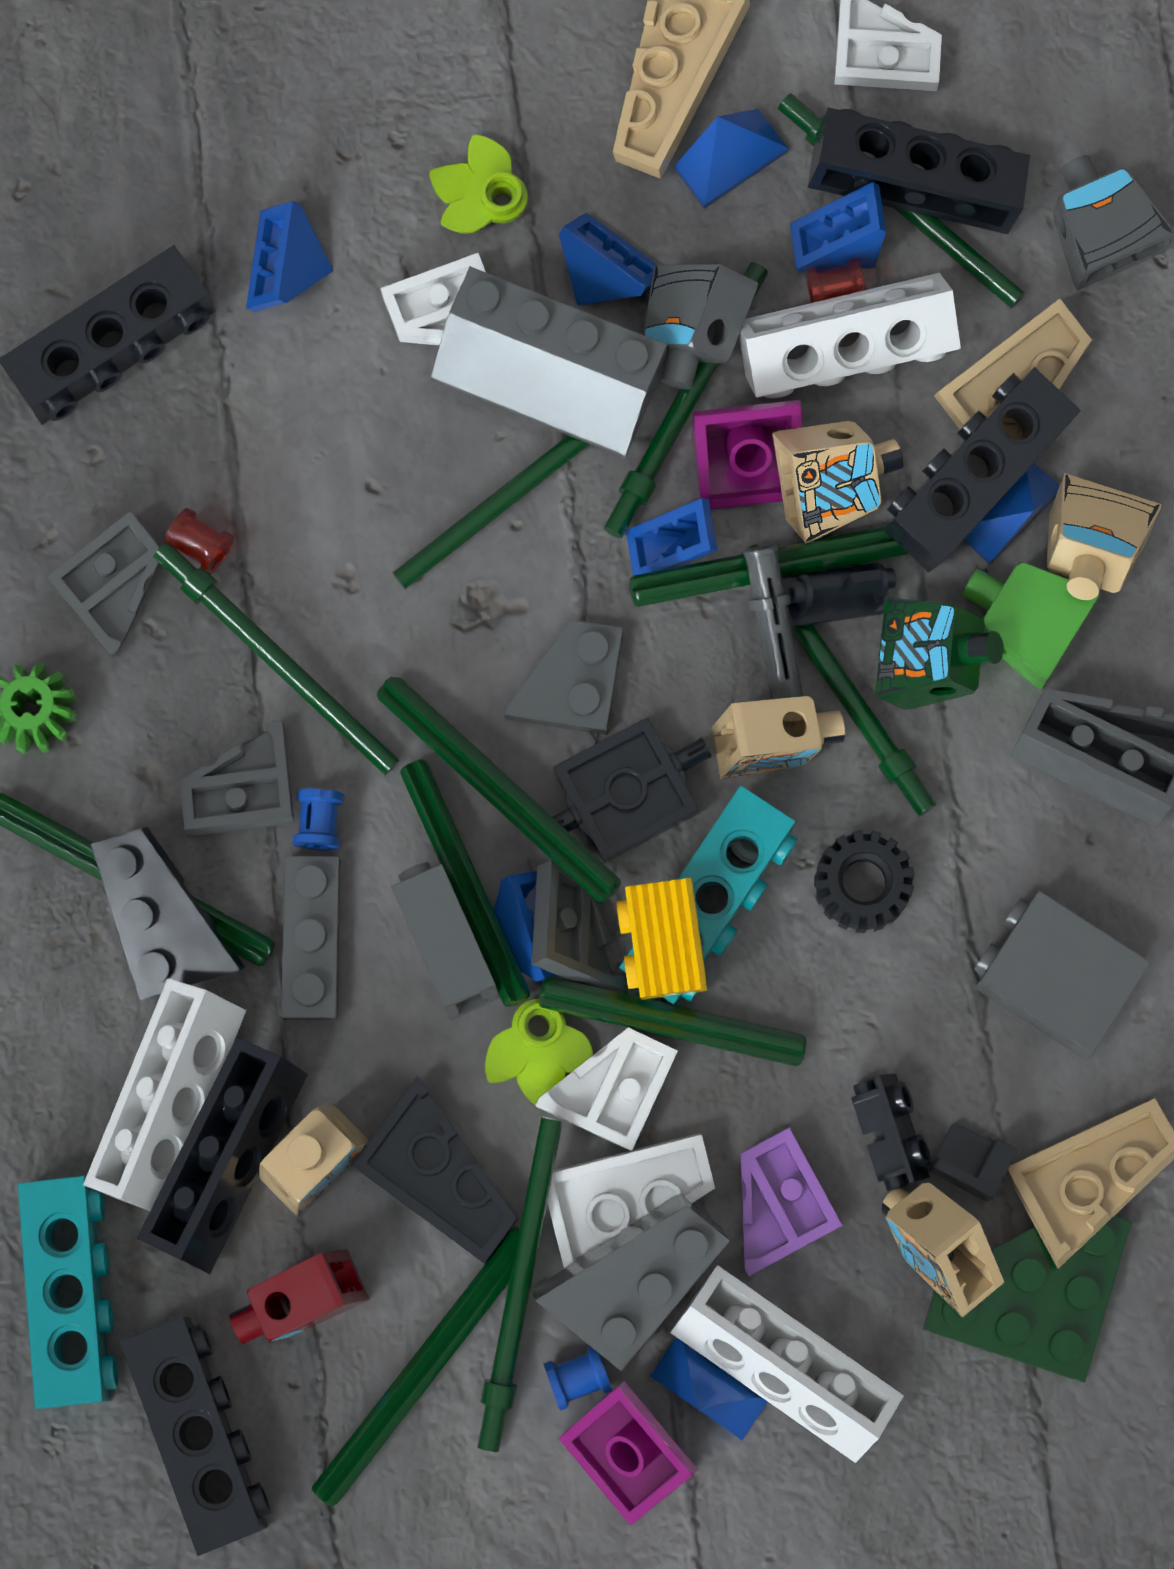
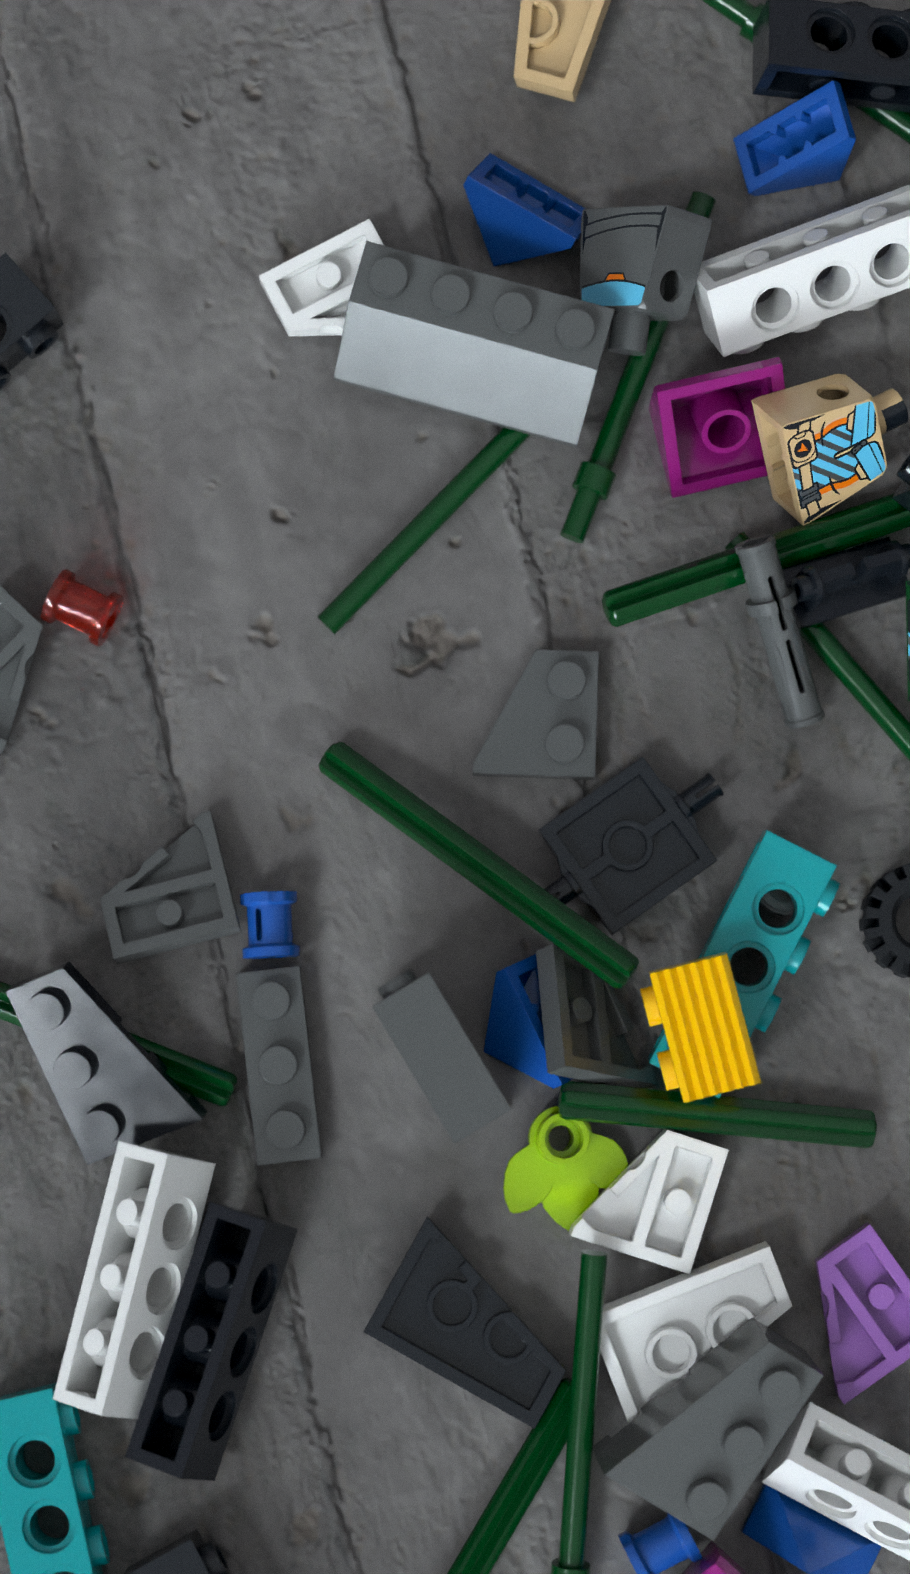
camera: 10 degrees left, 5 degrees up
(201, 587) = (93, 664): dark green bar -> none
(285, 257) = (138, 250): blue slope -> none
(311, 1157) = (319, 1328): tan torso -> none
(316, 1293) = (342, 1488): dark red torso -> none
(465, 882) = (452, 979): dark green axle -> none
(472, 187) = (351, 136): lime plate -> none
(672, 538) = (645, 541): blue slope -> none
(729, 154) = (651, 64): blue slope -> none
(772, 735) = (794, 762): tan torso -> none
(835, 281) = (798, 205): clear red bush -> none

